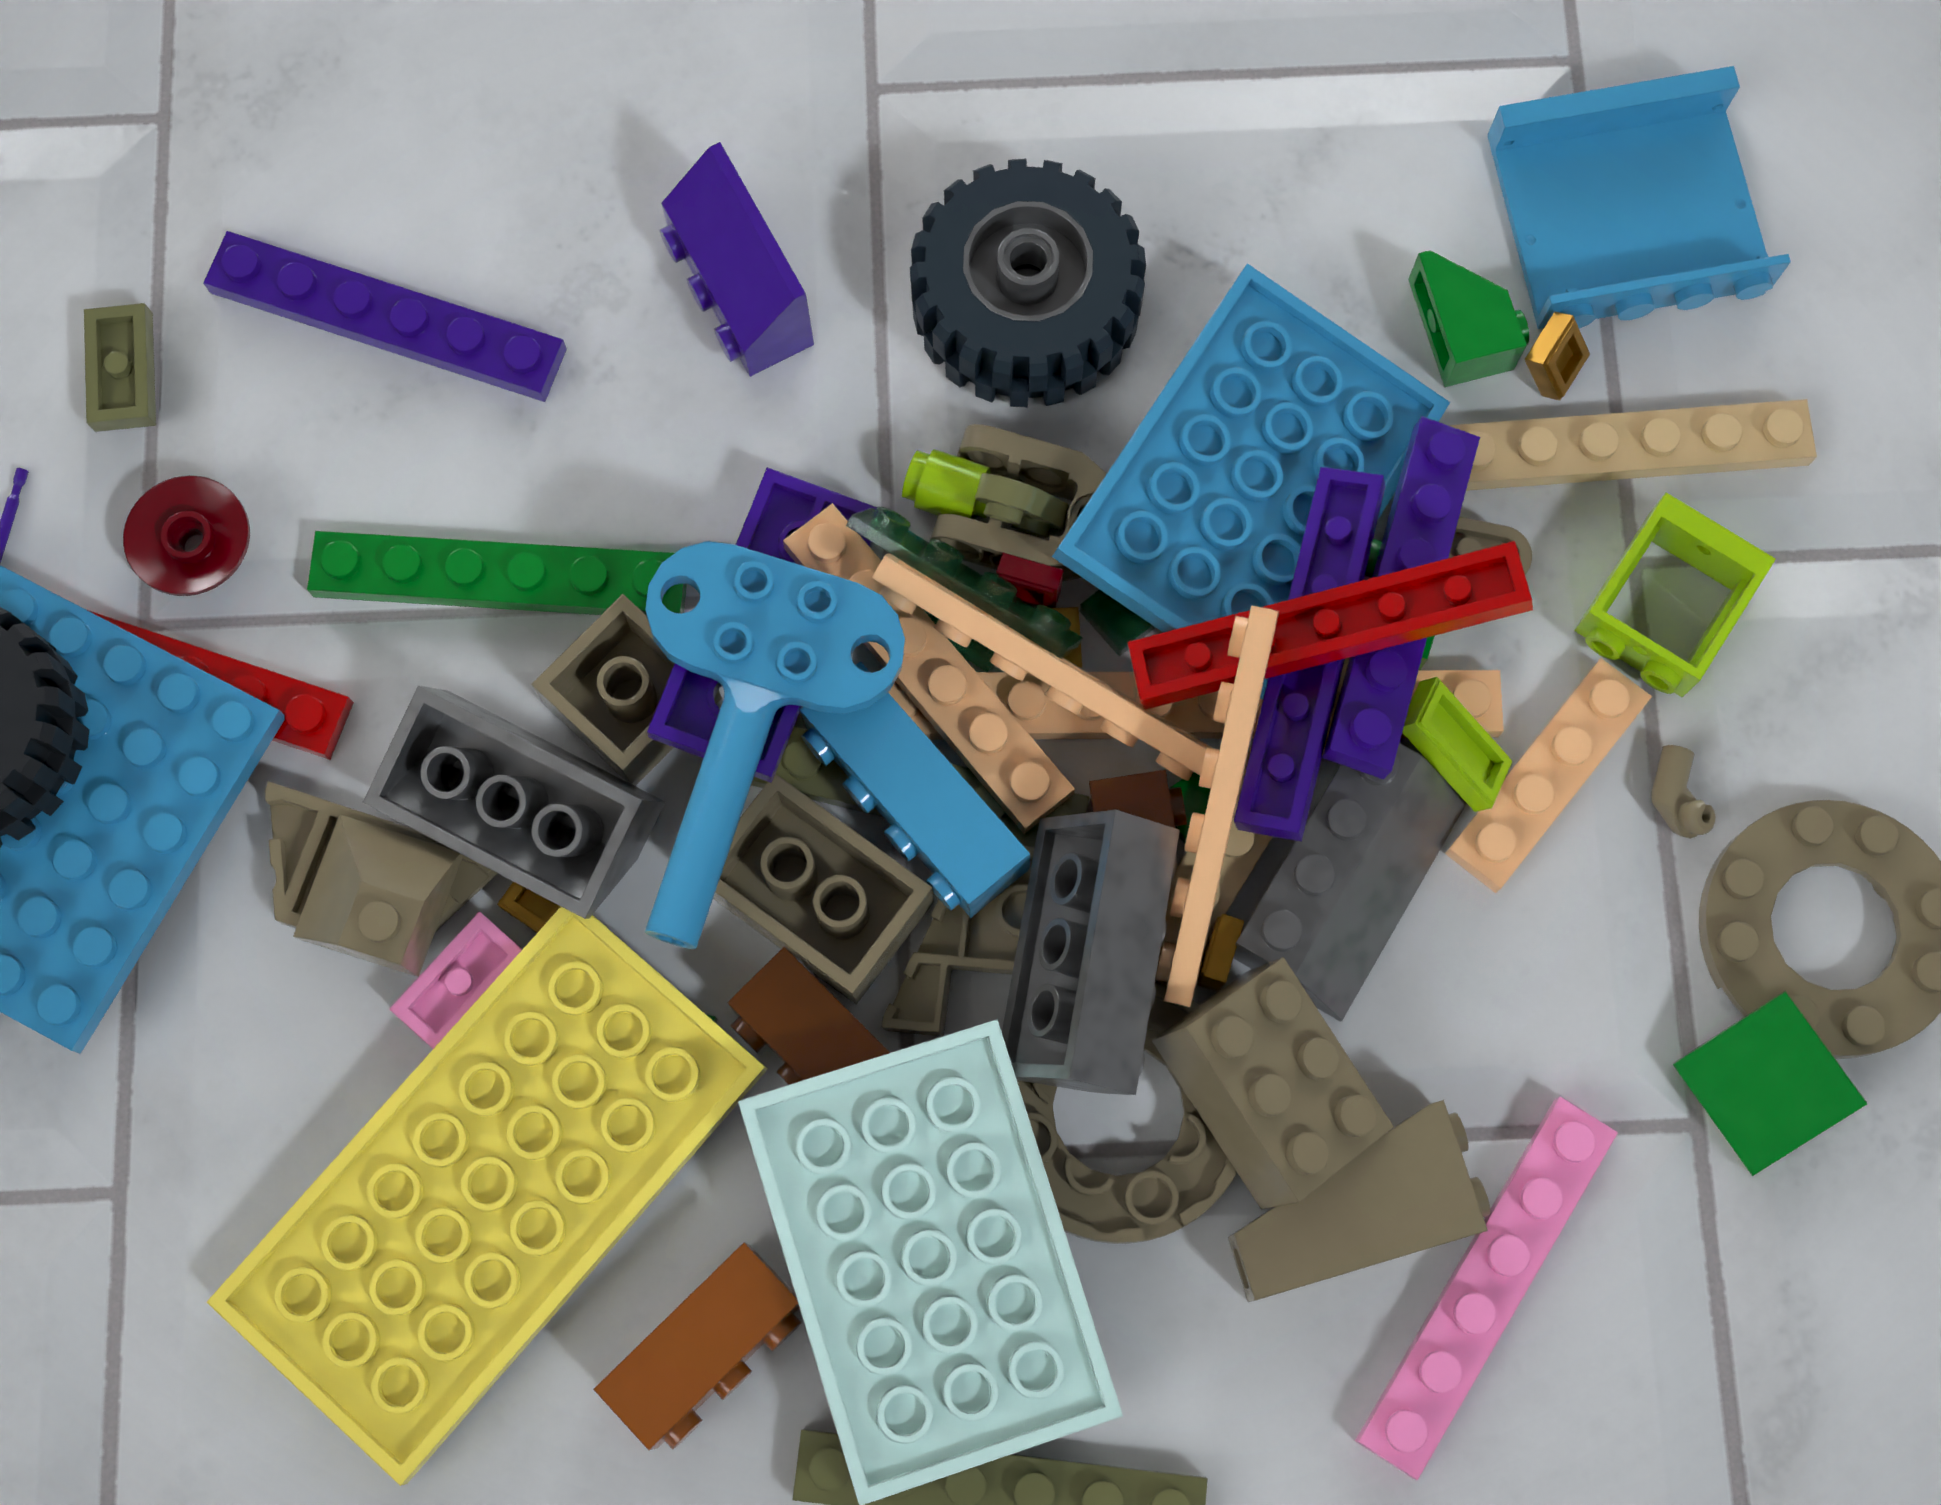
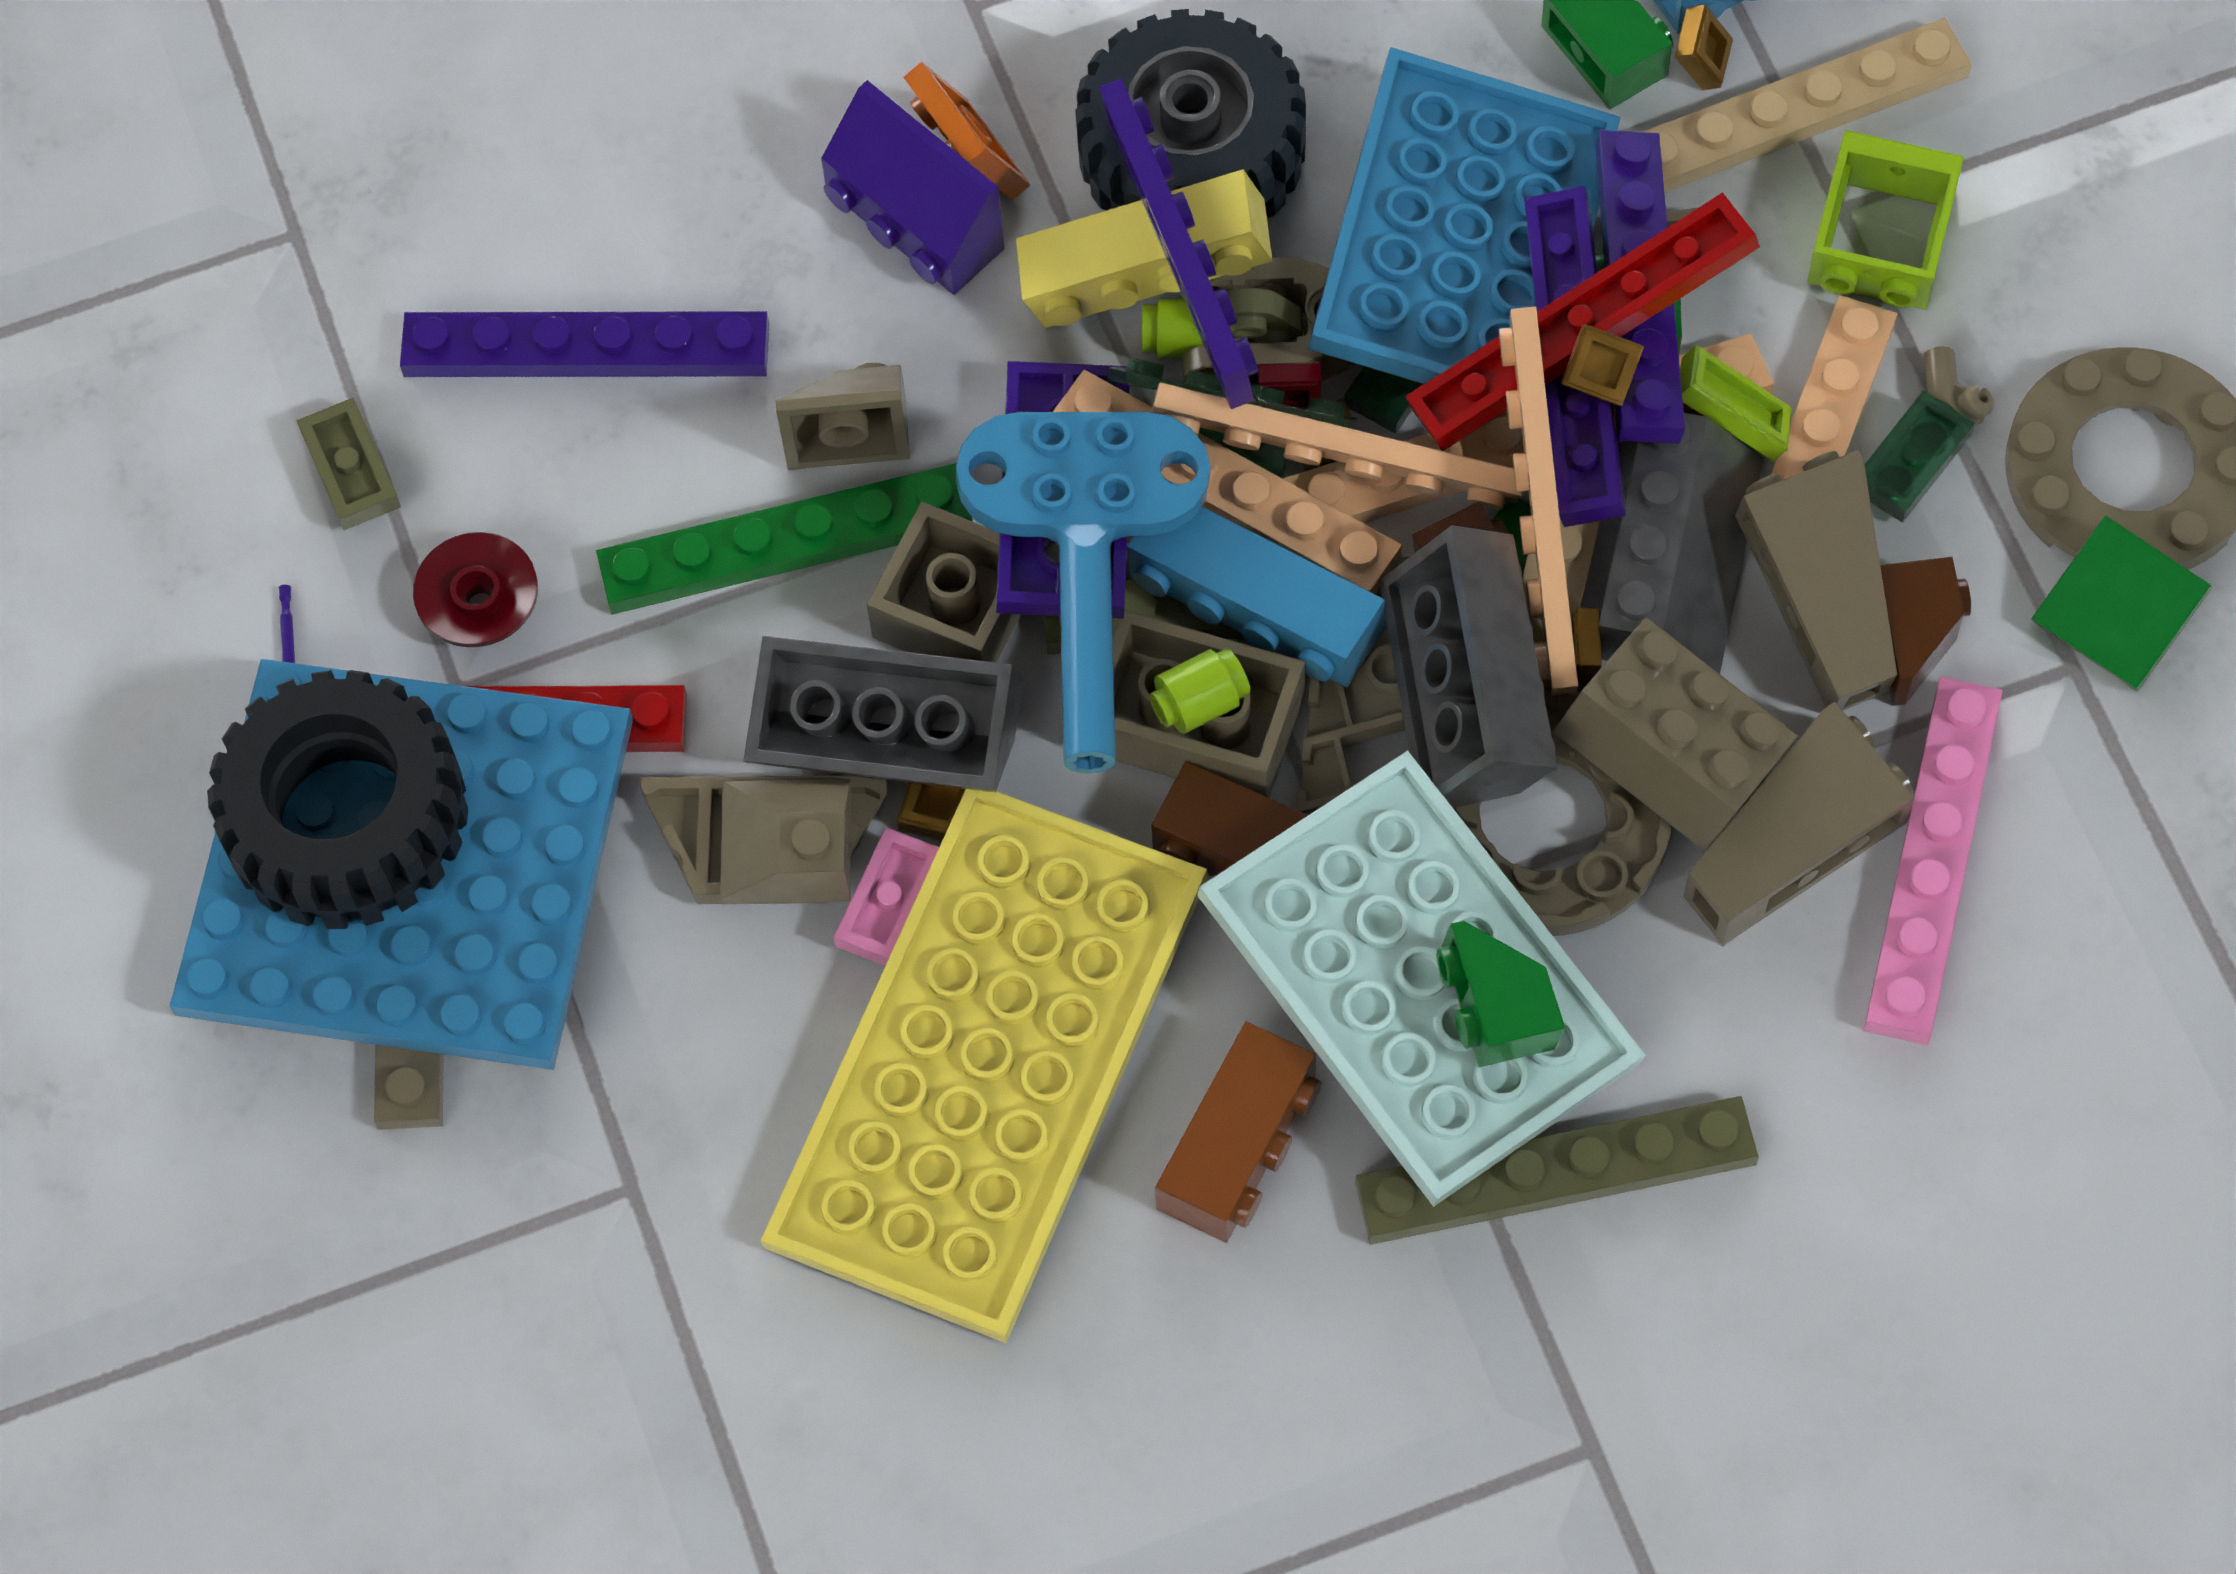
camera: 15 degrees left, 10 degrees down
(594, 474) = (846, 419): none -> dark tan slope
(807, 218) = (964, 129): none -> orange plate
(811, 891) = (1199, 690): none -> lime brick
(934, 399) = (1118, 260): none -> light yellow brick
(956, 437) = (1188, 260): none -> dark purple plate
(995, 1324) = (1501, 995): none -> green slope
(1329, 682) = (1602, 365): none -> pearl gold tile
(1483, 957) = (1825, 573): none -> dark tan slope
(1557, 1030) = (1924, 618): none -> reddish brown slope
(1614, 853) = (1915, 455): none -> clear green plate

